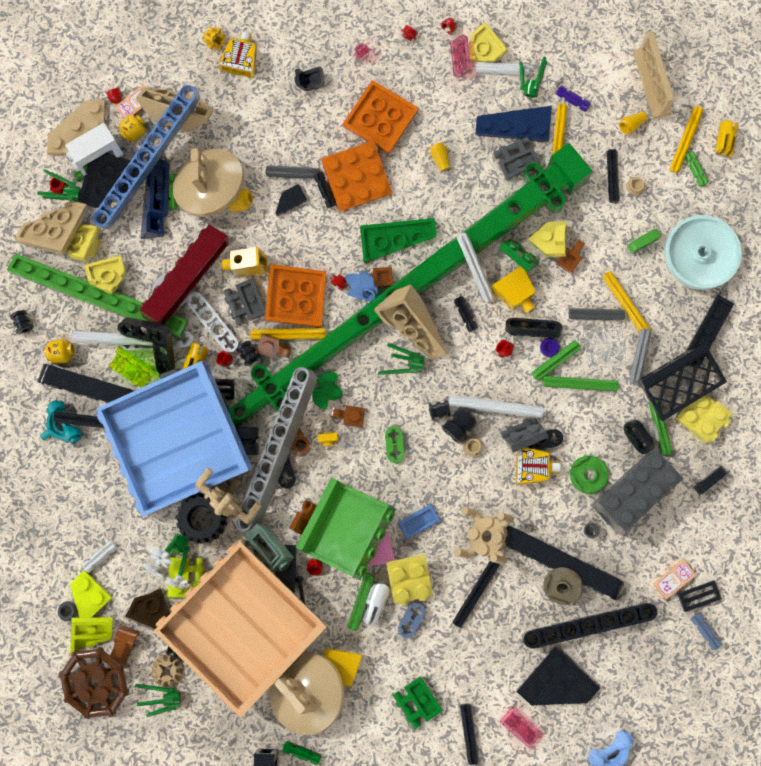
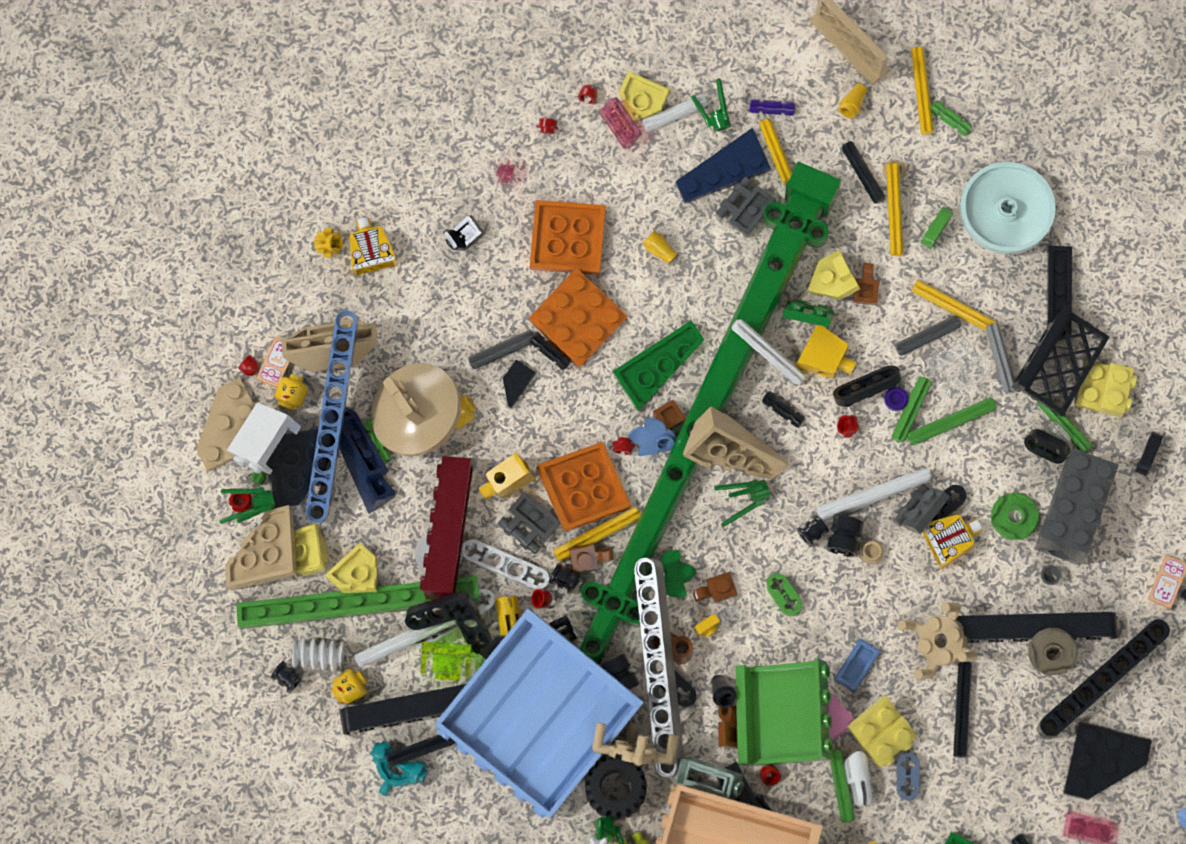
camera: 25 degrees left, 5 degrees down
(48, 318) = (318, 655): none -> white piece
(312, 491) = (722, 692): none -> black cone
(621, 212) = (894, 209): none -> yellow axle
(726, 138) = (966, 67): yellow arm -> none

